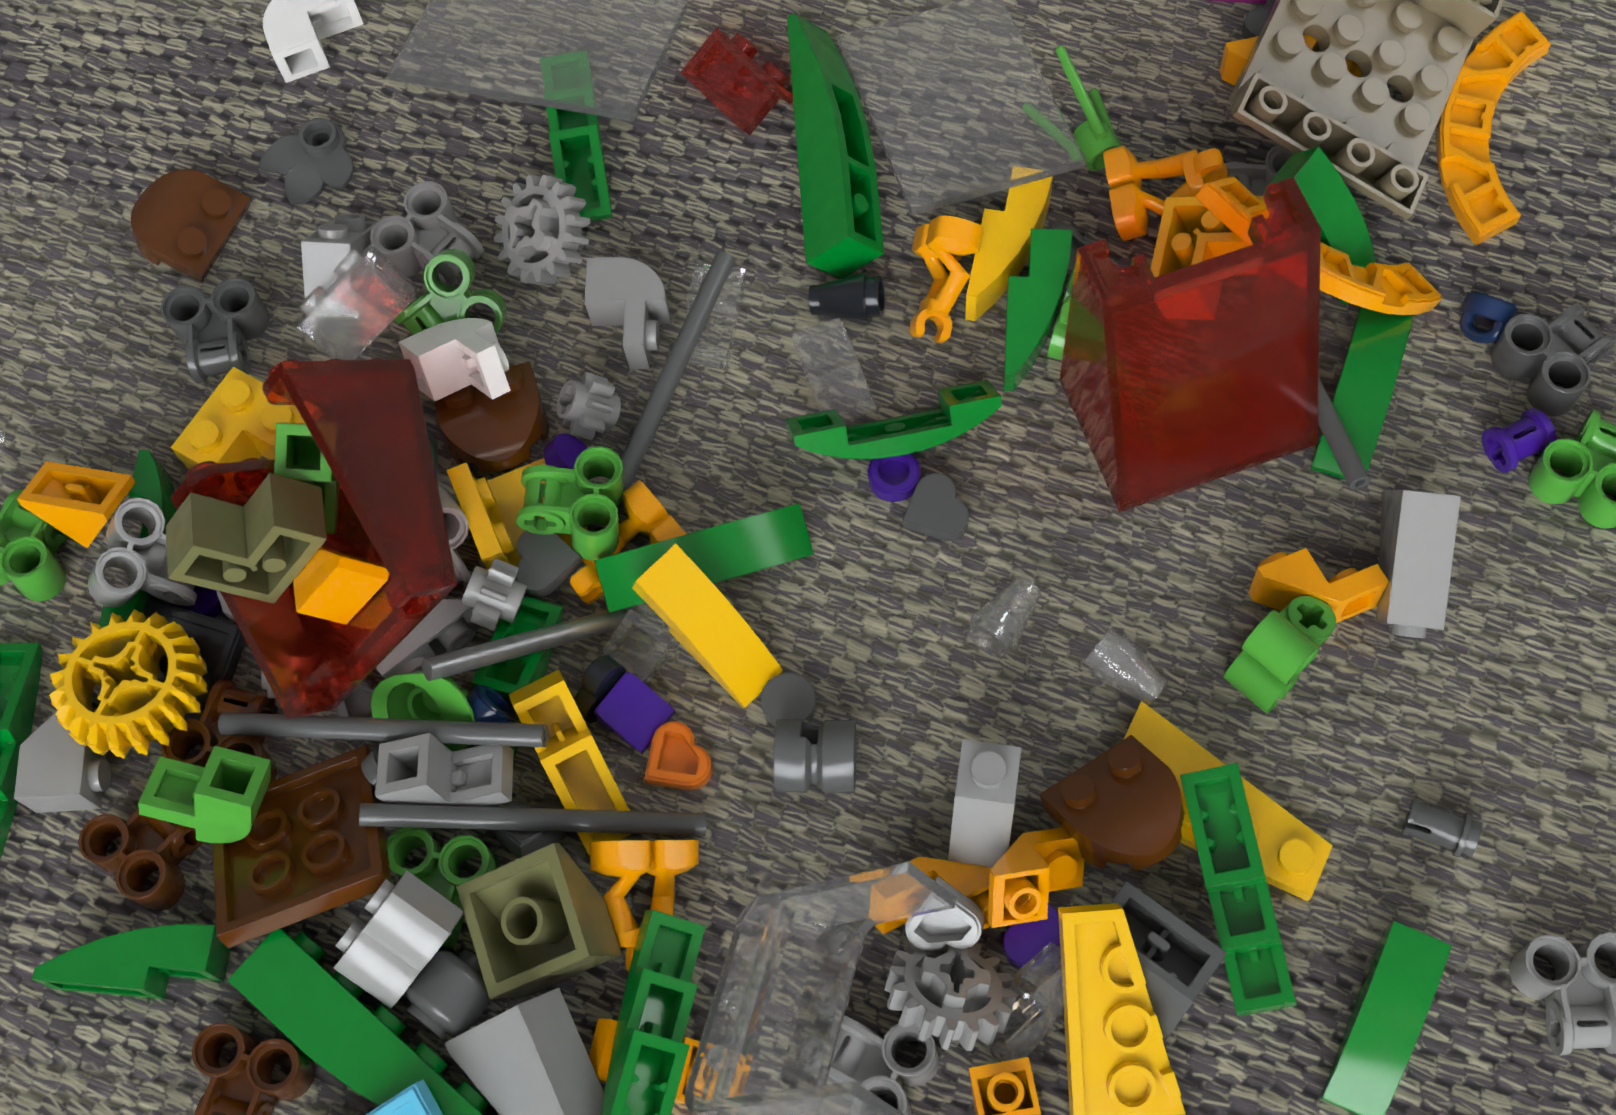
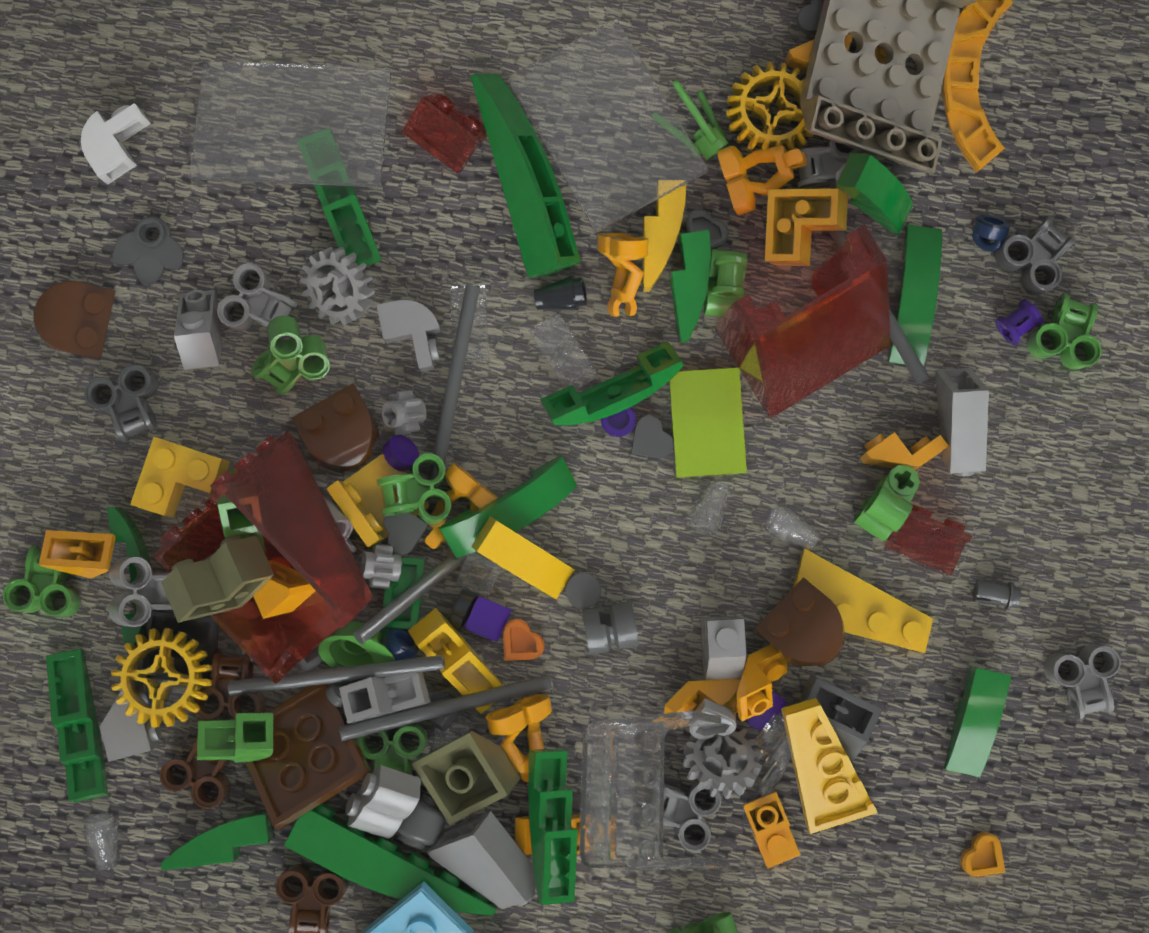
camera: 25 degrees left, 20 degrees up
(356, 304) = (225, 372): clear brick -> none
(456, 356) = (306, 396): white brick -> none
(1024, 502) = (707, 423): none -> lime tile
(1171, 98) = (741, 103): none -> yellow gear
(1238, 890) = (881, 660): green slope -> none
(1340, 723) = (929, 540): none -> clear red bracket
(1377, 287) = (891, 235): light orange tile -> none

